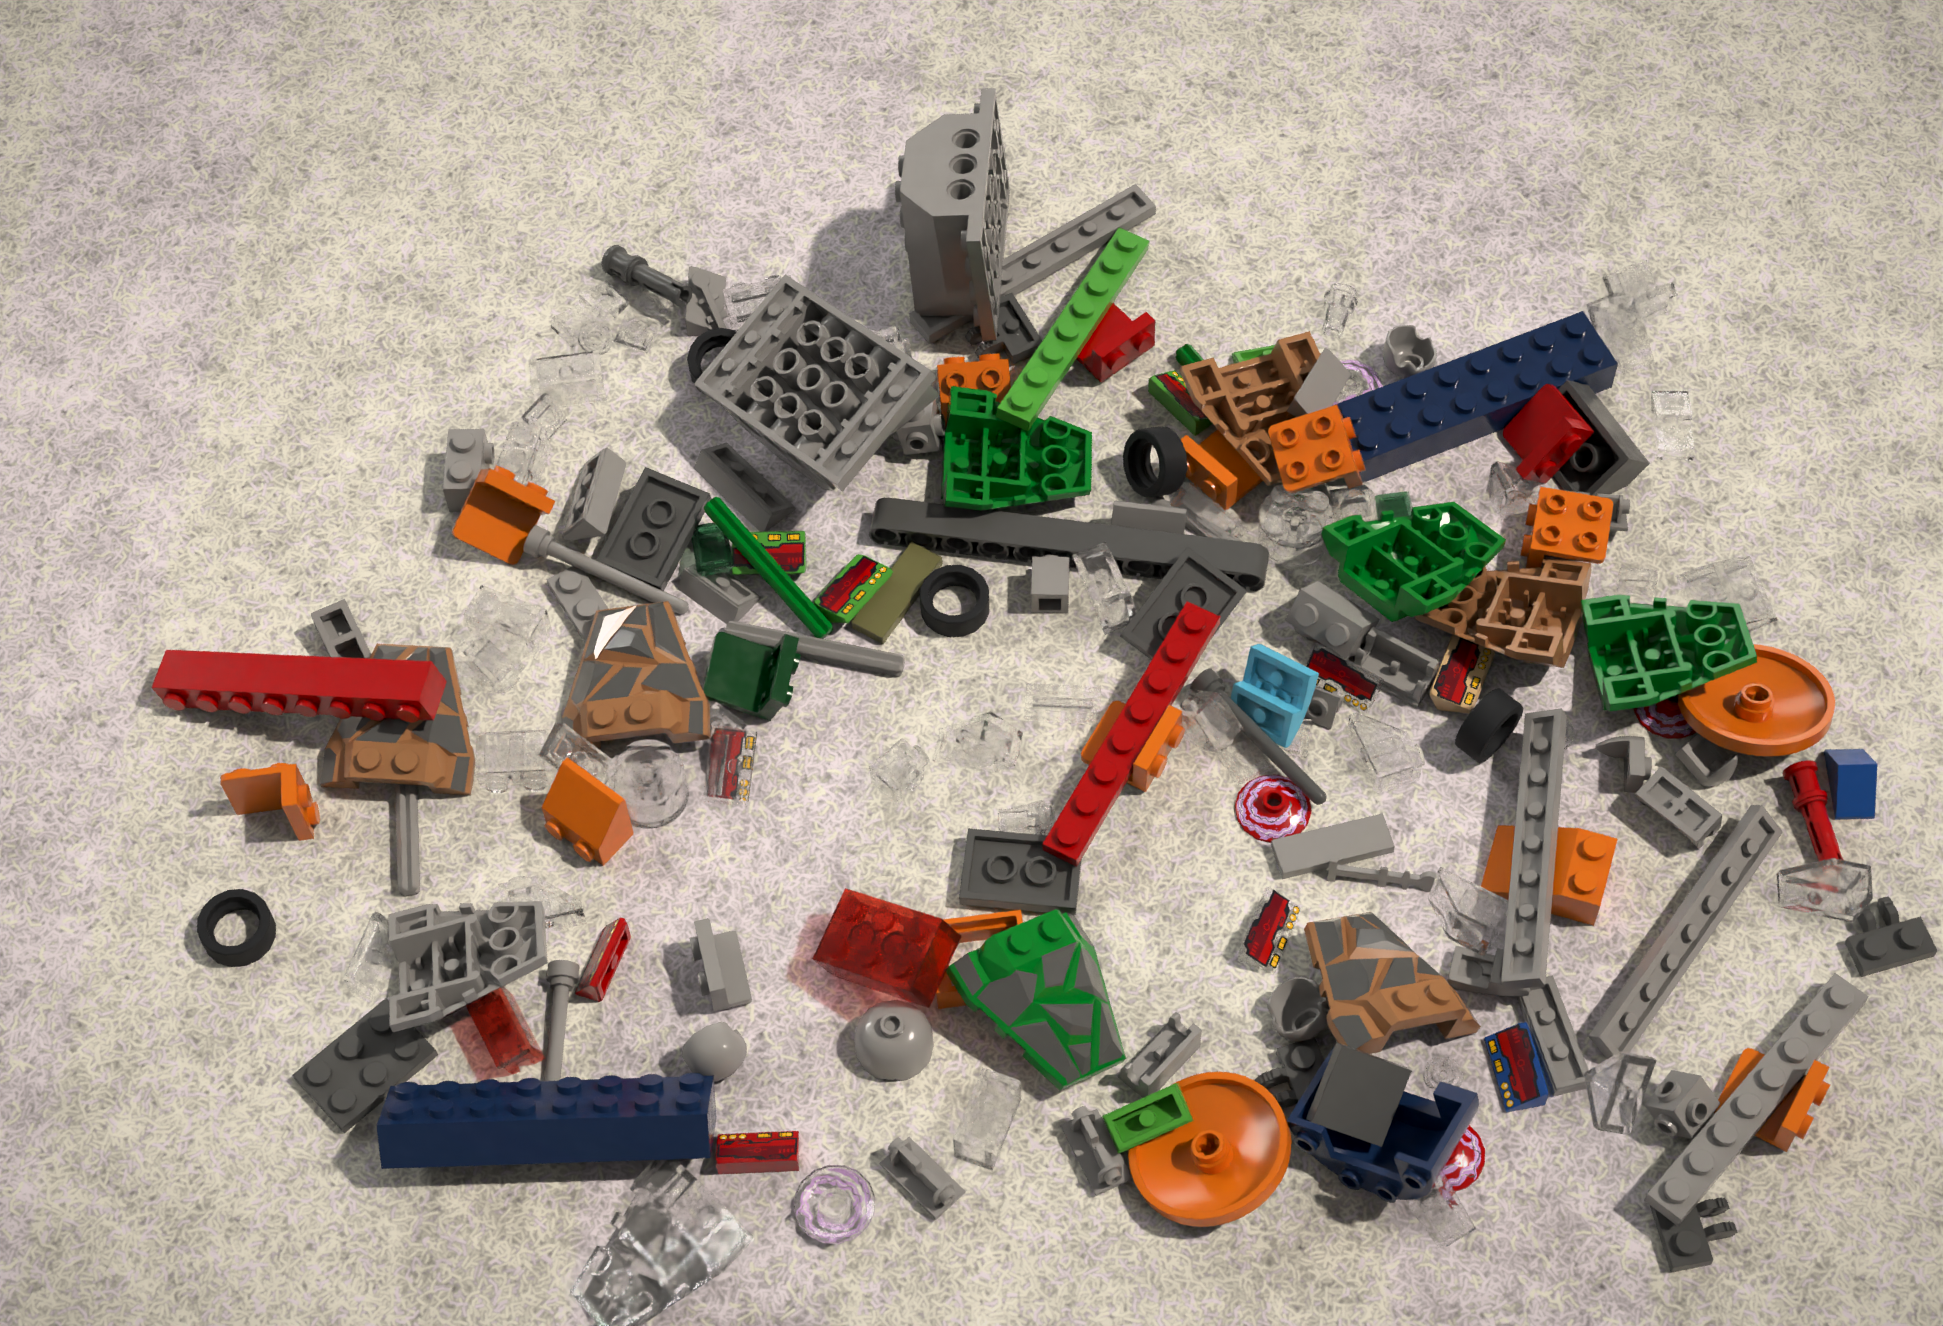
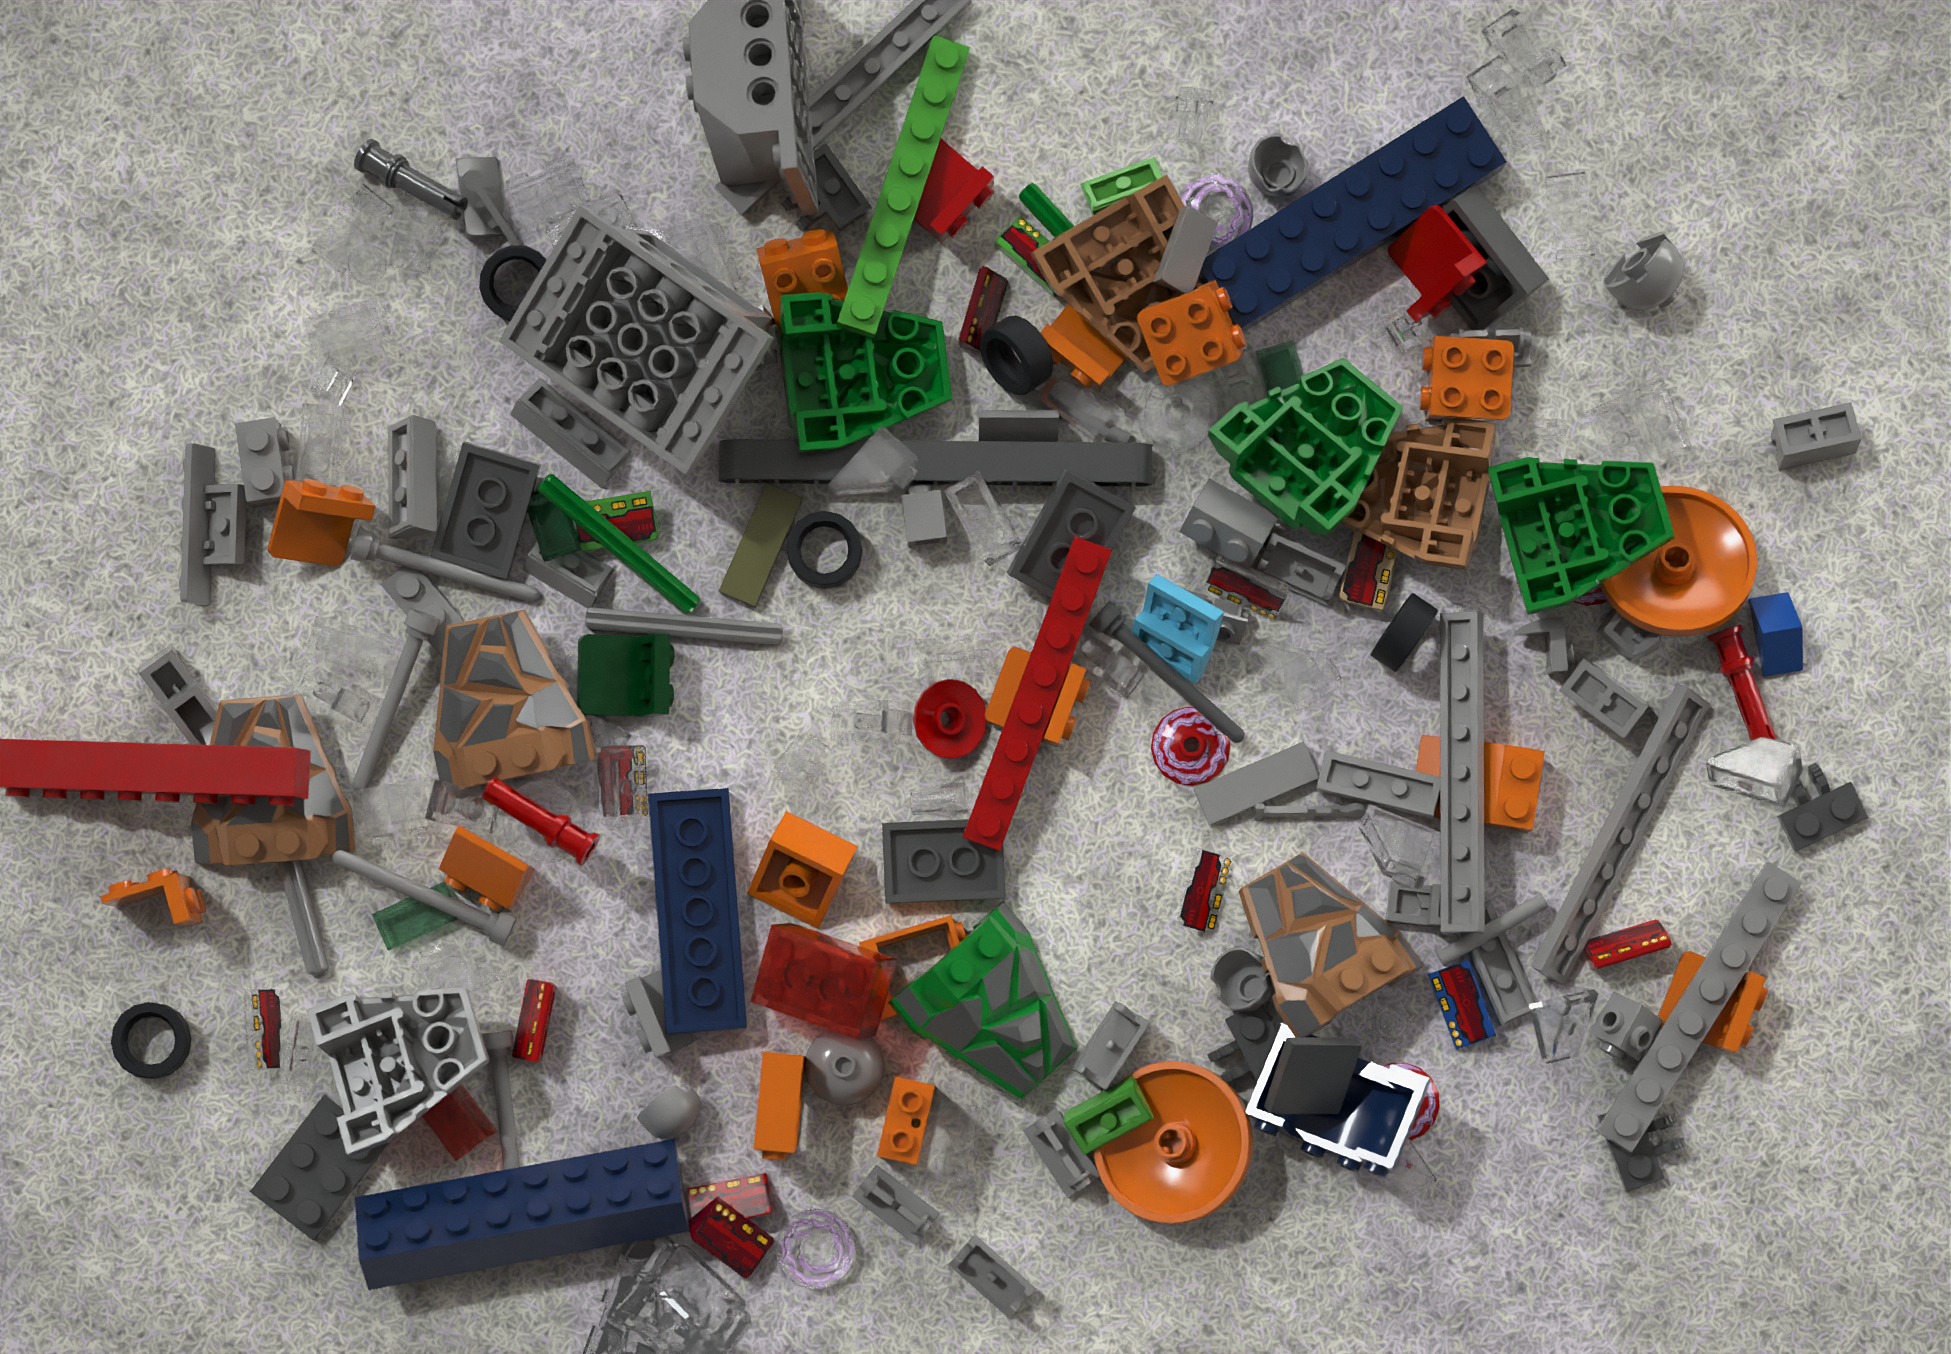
camera: 15 degrees left, 25 degrees up
(342, 930) = (263, 1029): none -> slope
(406, 514) = (211, 524): none -> light grey bracket
(512, 855) = (410, 919): none -> clear green tile
(572, 609) = (418, 628): none -> light grey piece
(586, 870) = (494, 925): none -> light grey piece
(657, 775) = (556, 829): none -> red pin
(751, 1174) = (730, 1237): none -> slope
(777, 883) = (697, 911): none -> dark blue plate
(823, 1056) = (779, 1105): none -> orange window
(852, 589) = (713, 552): slope -> none
(884, 857) = (802, 869): none -> orange slope
(945, 1076) = (899, 1138): none -> orange window
(1008, 1256) = (992, 1276): none -> light grey hinge
(1011, 526) = (877, 467): none -> clear slope
(1056, 739) = (965, 714): none -> red dish
(1133, 417) = (982, 308): none -> slope
(1464, 857) = (1379, 784): none -> light grey plate
(1552, 999) = (1492, 929): none -> light grey bar
(1568, 941) = (1503, 856): none -> clear tile
(1687, 1038) = (1626, 944): none -> slope
(1742, 472) = (1648, 275): none -> light grey cylinder
(1894, 619) = (1815, 436): none -> light grey hinge

